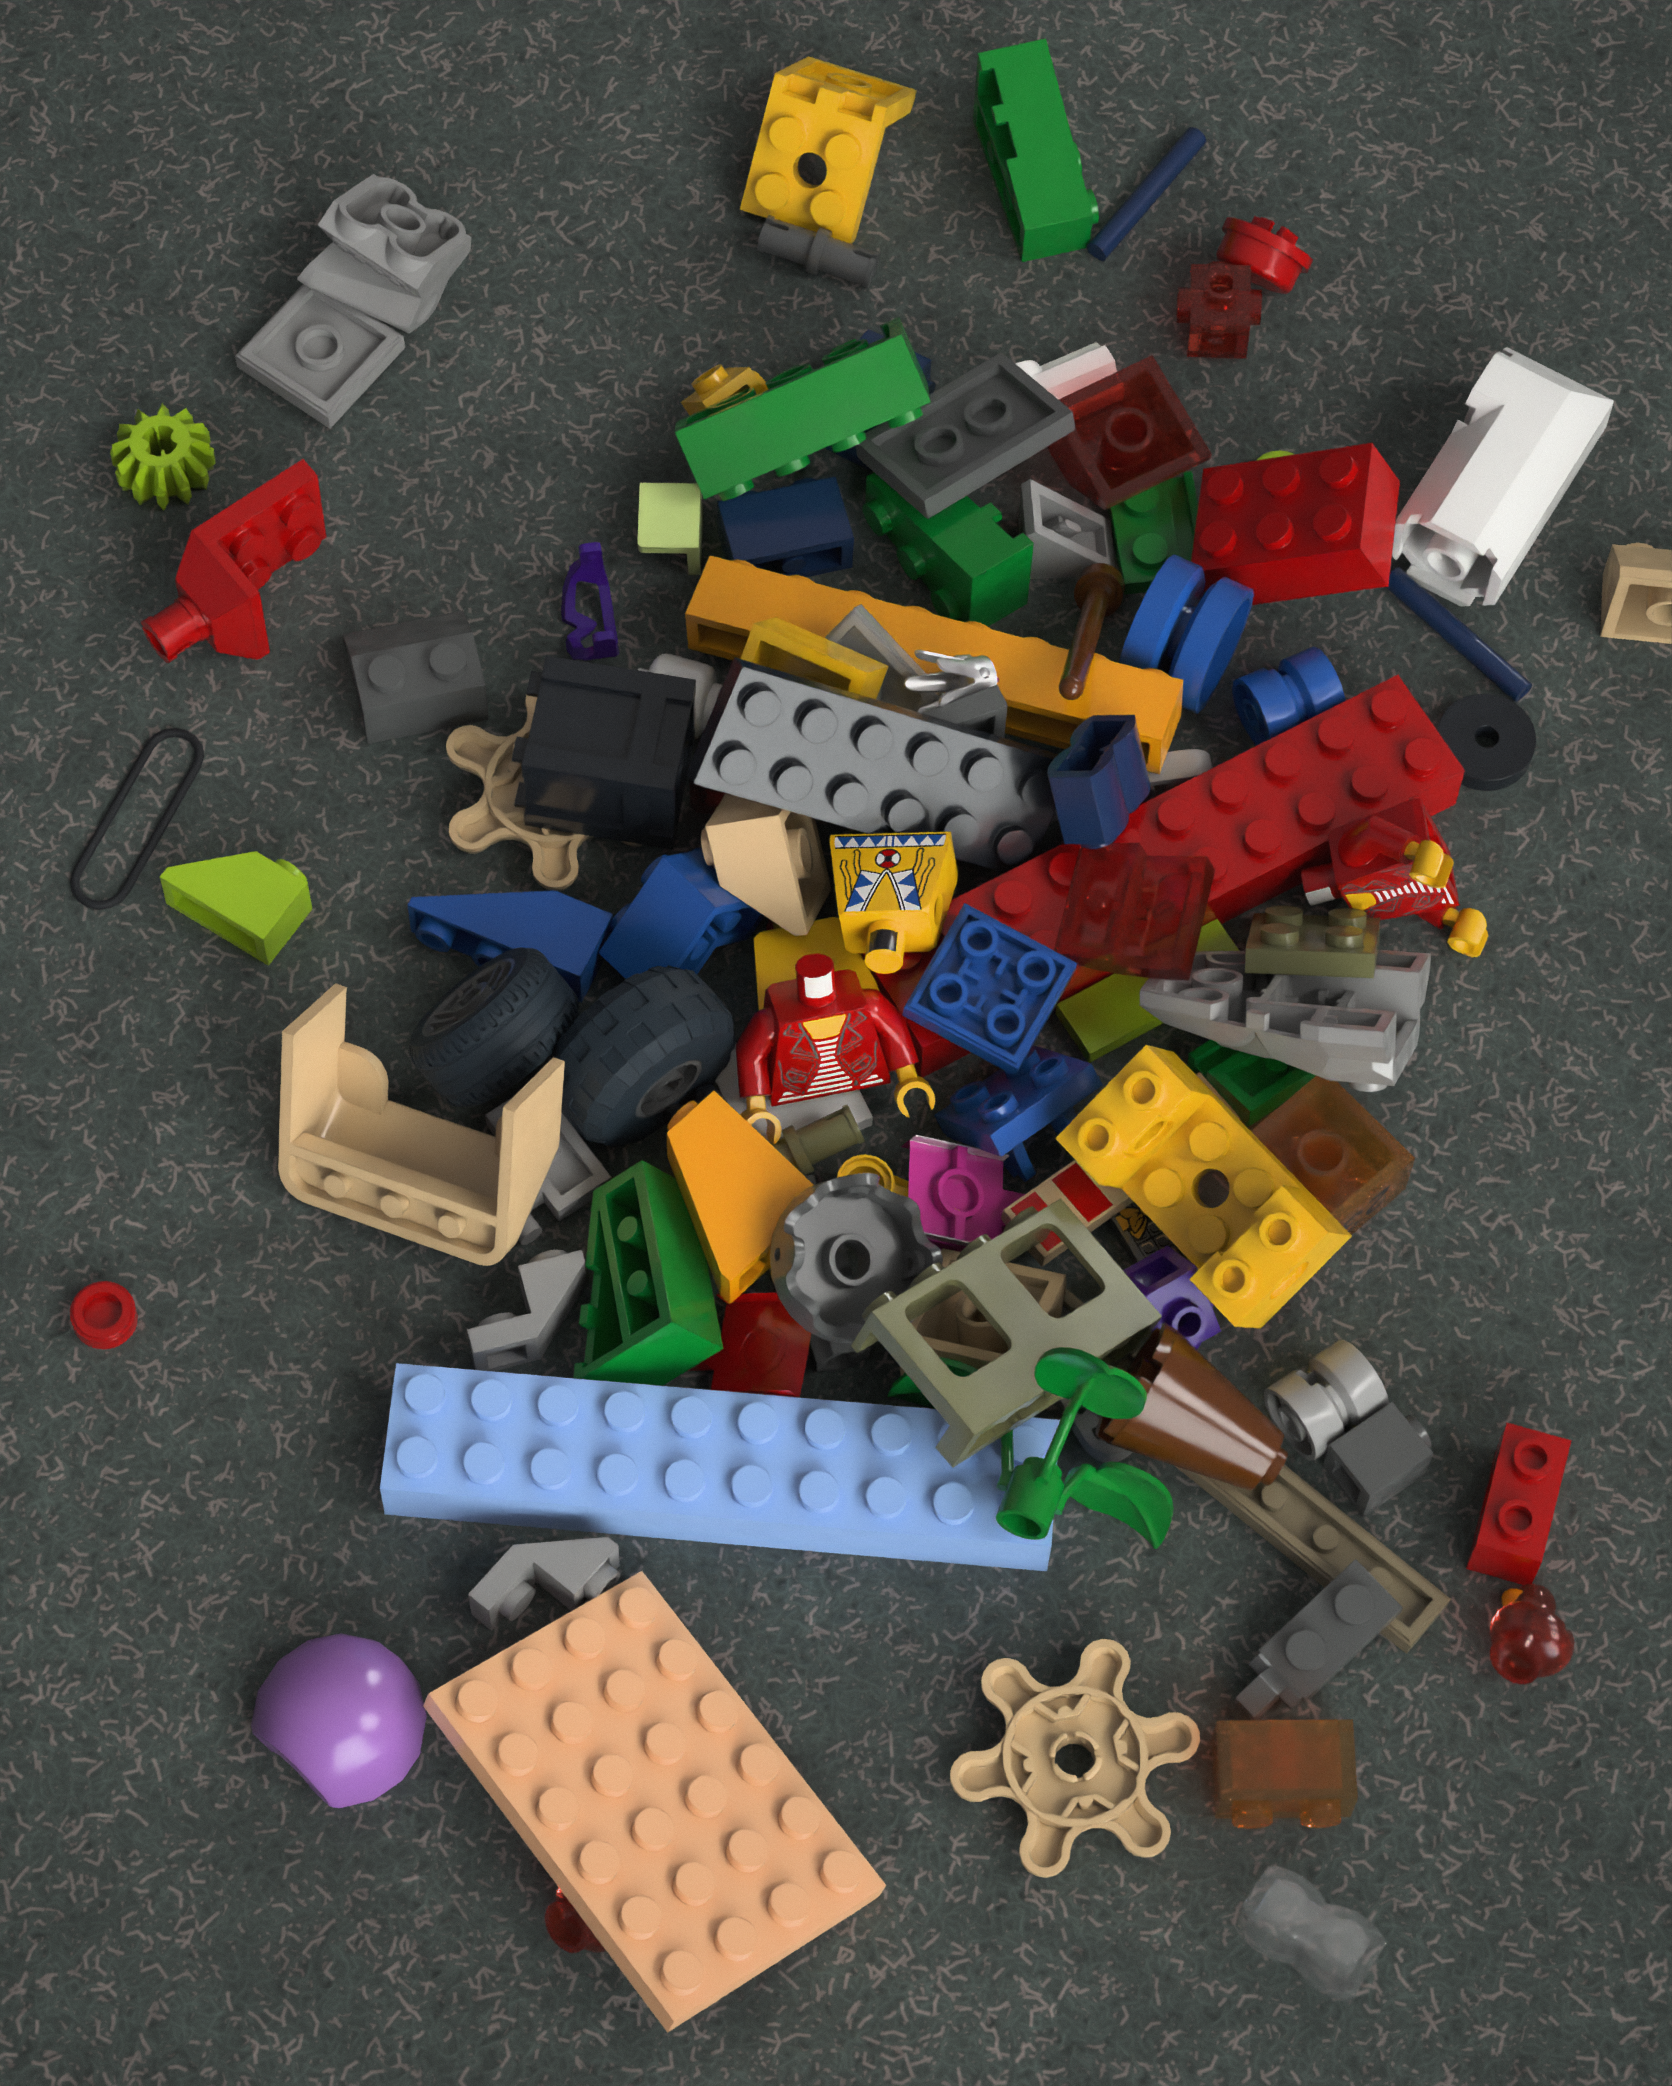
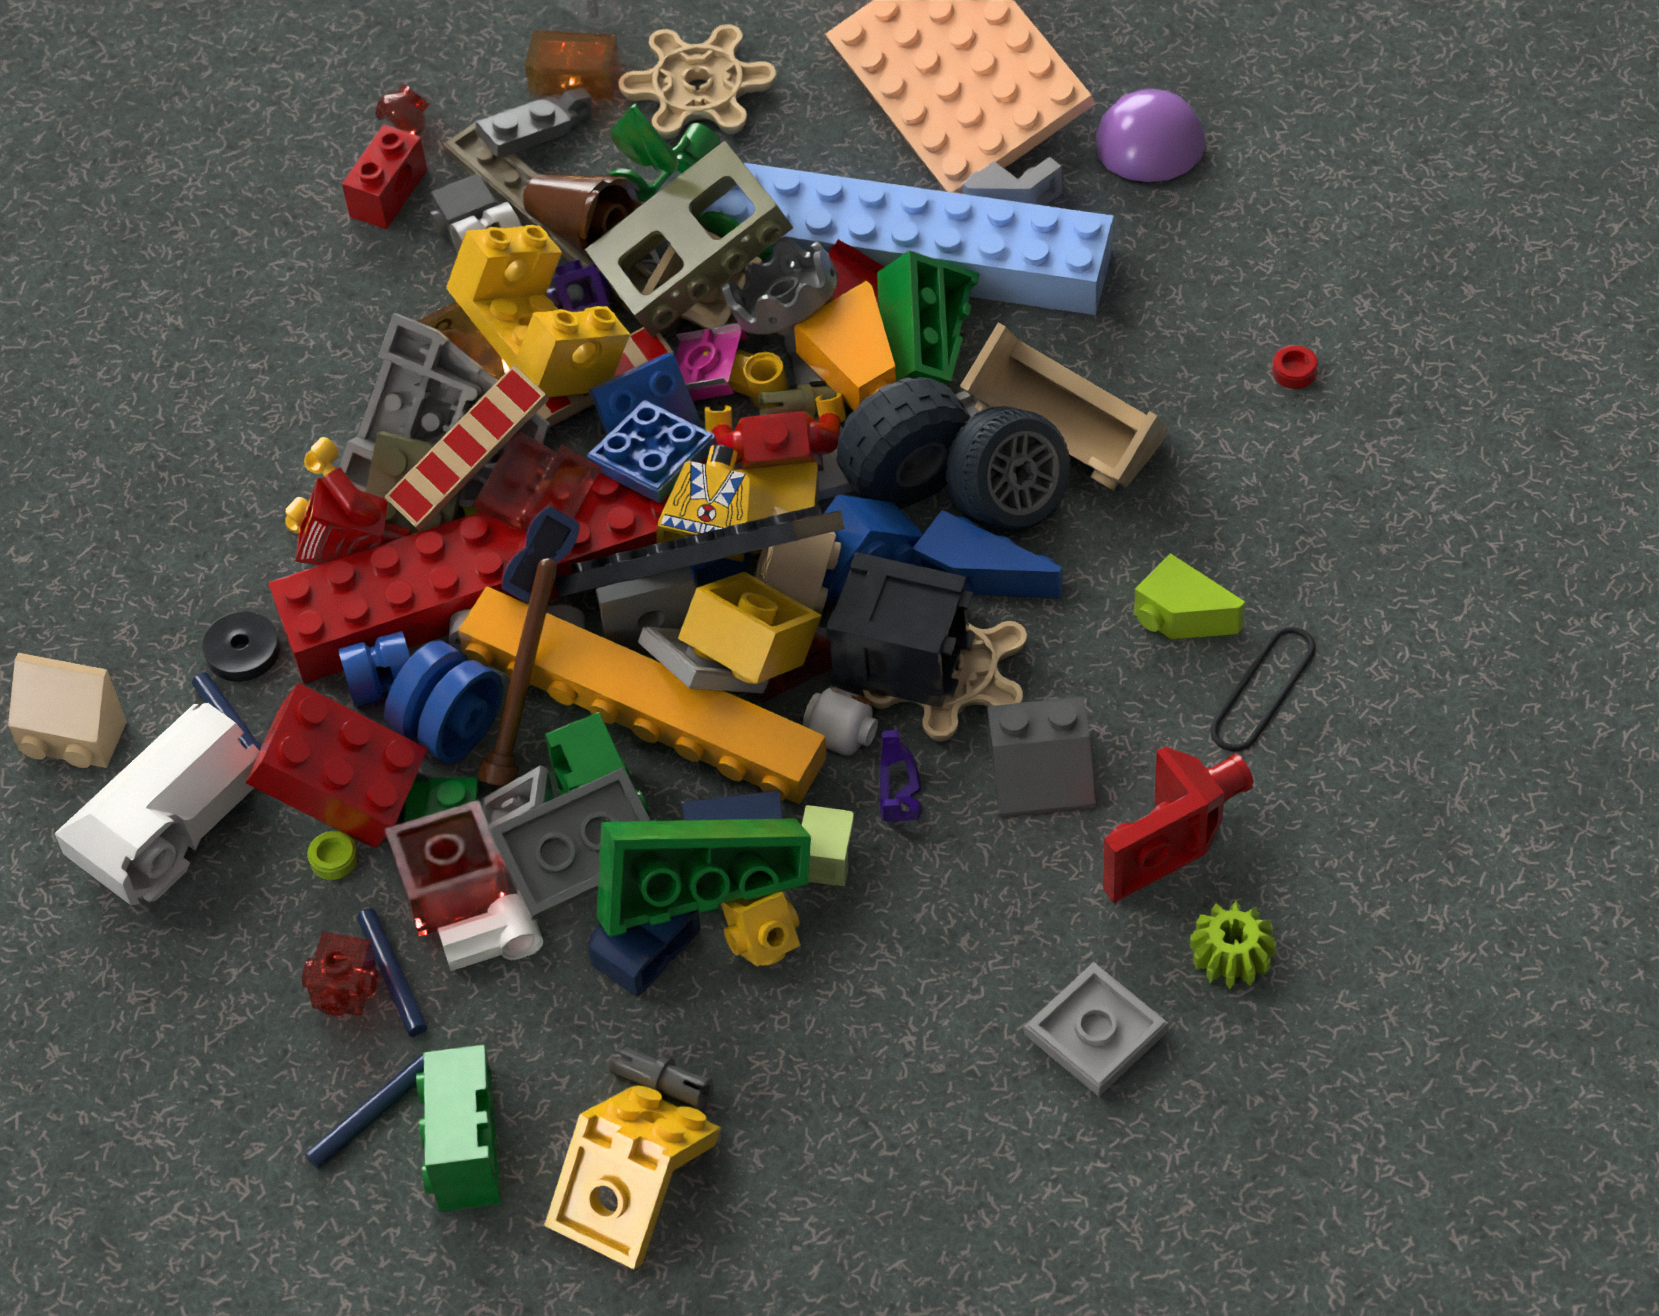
camera: 165 degrees left, 10 degrees down
(387, 253) = (1031, 1076): light grey piece -> none
(549, 1291) = (1020, 314): light grey slope -> none
(960, 678) = (629, 622): flat silver piece -> none
(1166, 349) = (392, 972): none -> dark blue bar
(1239, 932) = (466, 447): none -> tile
(1272, 257) = (290, 1019): red piece -> none

